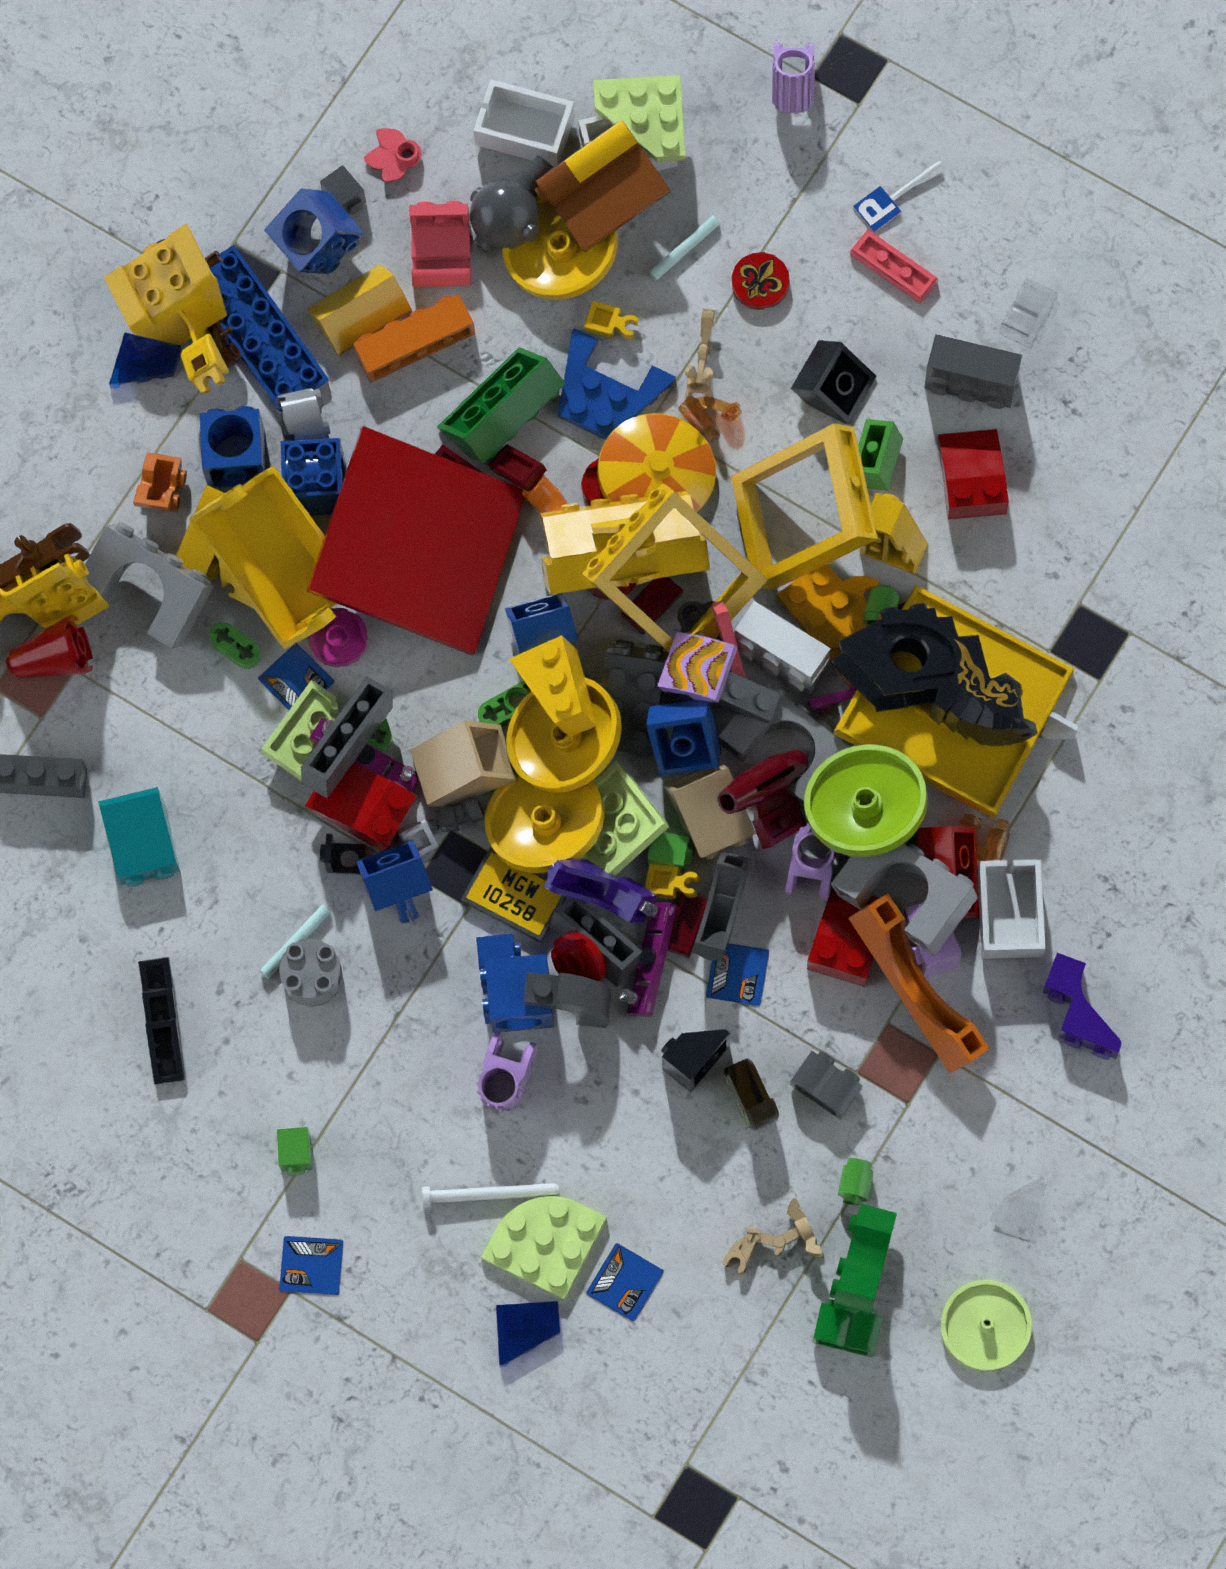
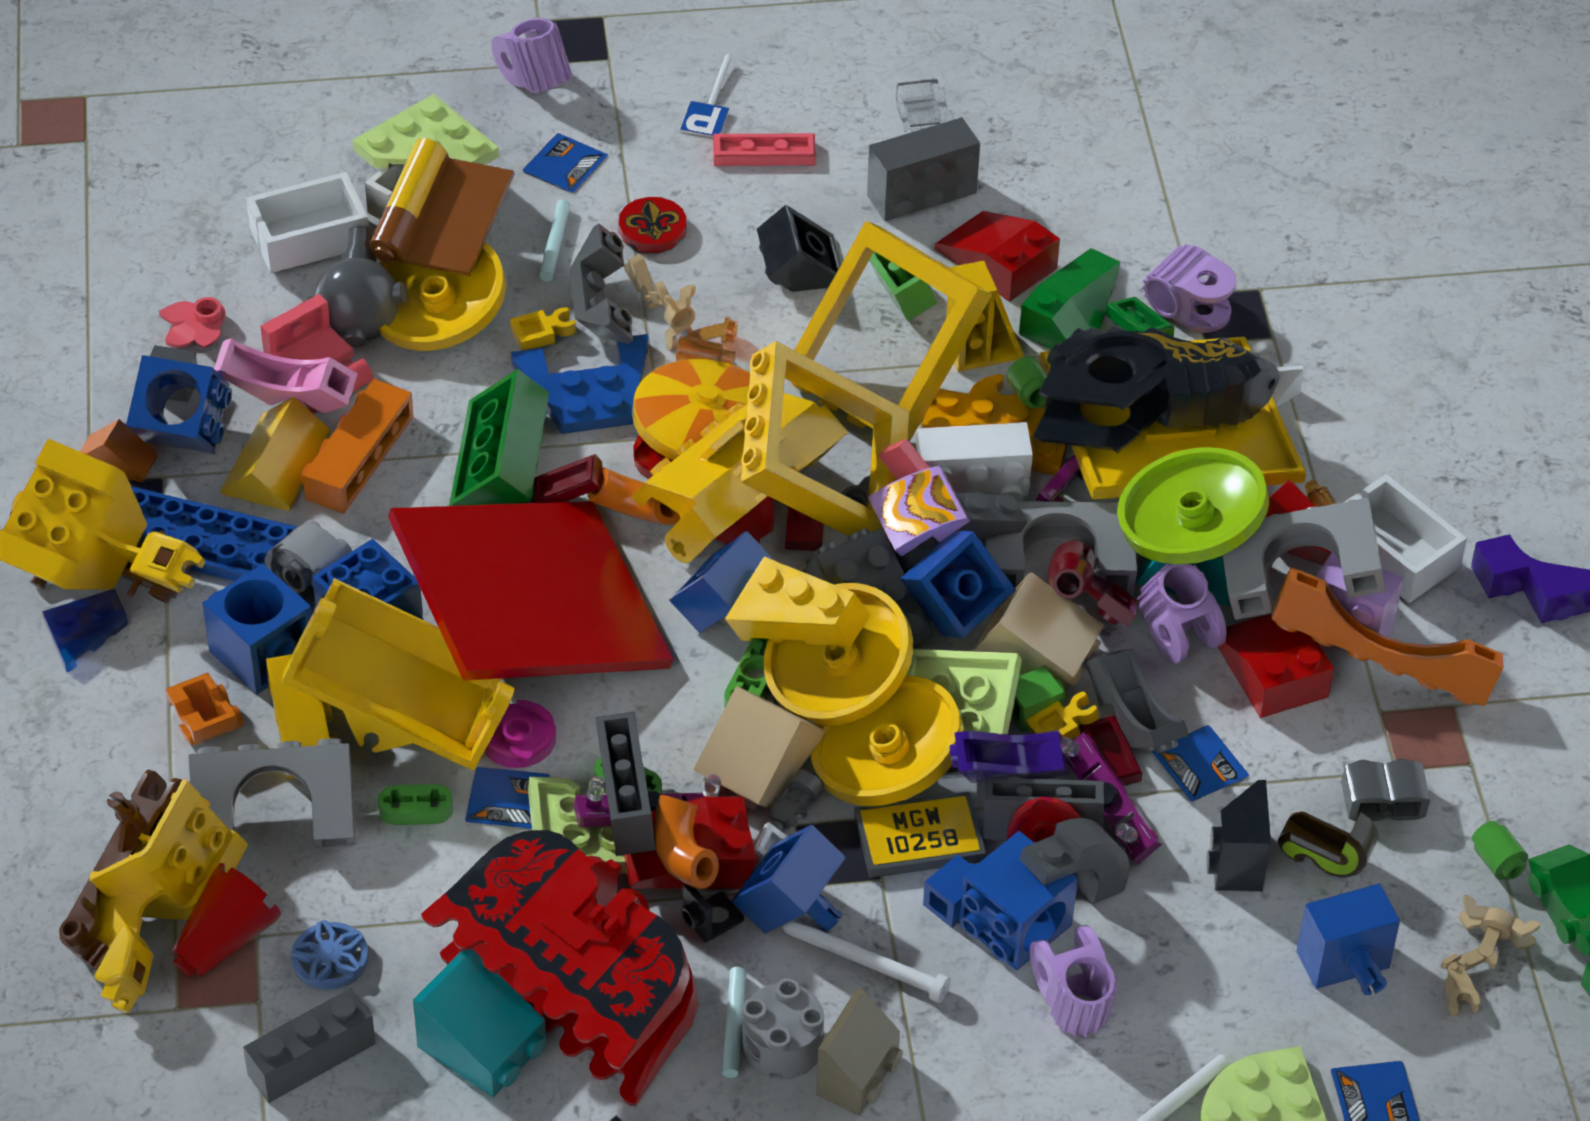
camera: 45 degrees left, 25 degrees down
(103, 717) = (329, 955): none -> medium blue wheel
(221, 837) = (576, 952): none -> red animal
(253, 226) = (121, 449): none -> orange slope
(336, 1024) = (857, 1054): none -> dark tan slope
(339, 807) = (677, 845): none -> orange cylinder
(397, 255) = (274, 379): none -> bright pink arch
(430, 1009) = (936, 986): none -> white bar
(688, 291) = (595, 261): none -> dark grey slope
(692, 1173) = (1349, 938): none -> blue brick
(750, 180) = (565, 162): none -> blue sticker
(982, 555) = (1069, 299): none -> green wedge
(1008, 624) = (1136, 317): none -> green tile
(1065, 595) = (1176, 288): none -> lavender piece

